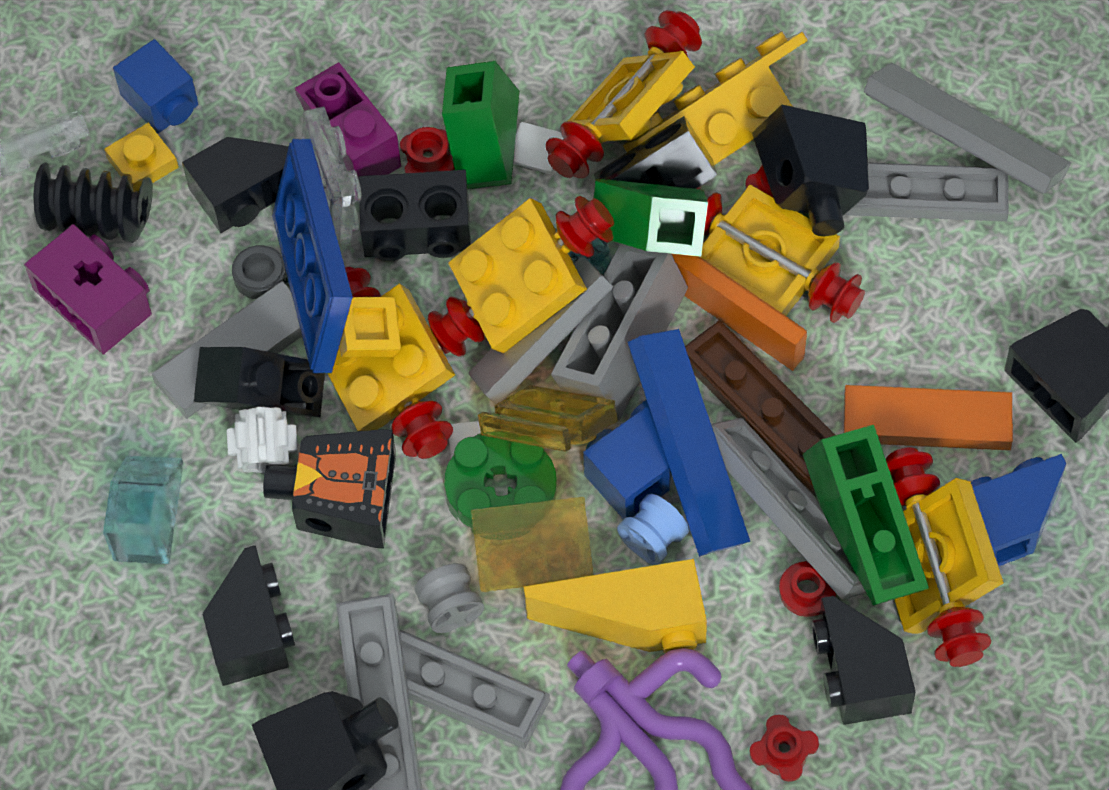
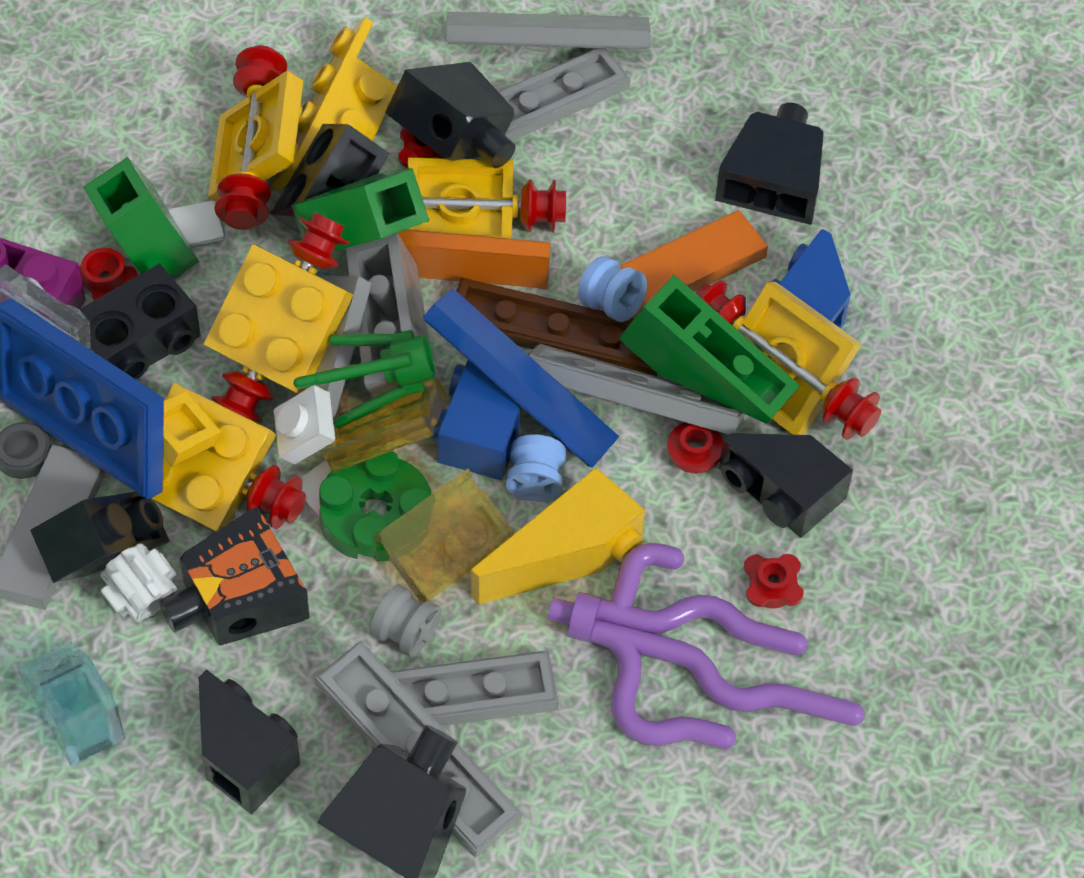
camera: 40 degrees left, 5 degrees down
(480, 379) = (304, 424): none -> white plate
(586, 374) = (405, 362): none -> green plant
(832, 403) = (612, 288): none -> light blue wheel

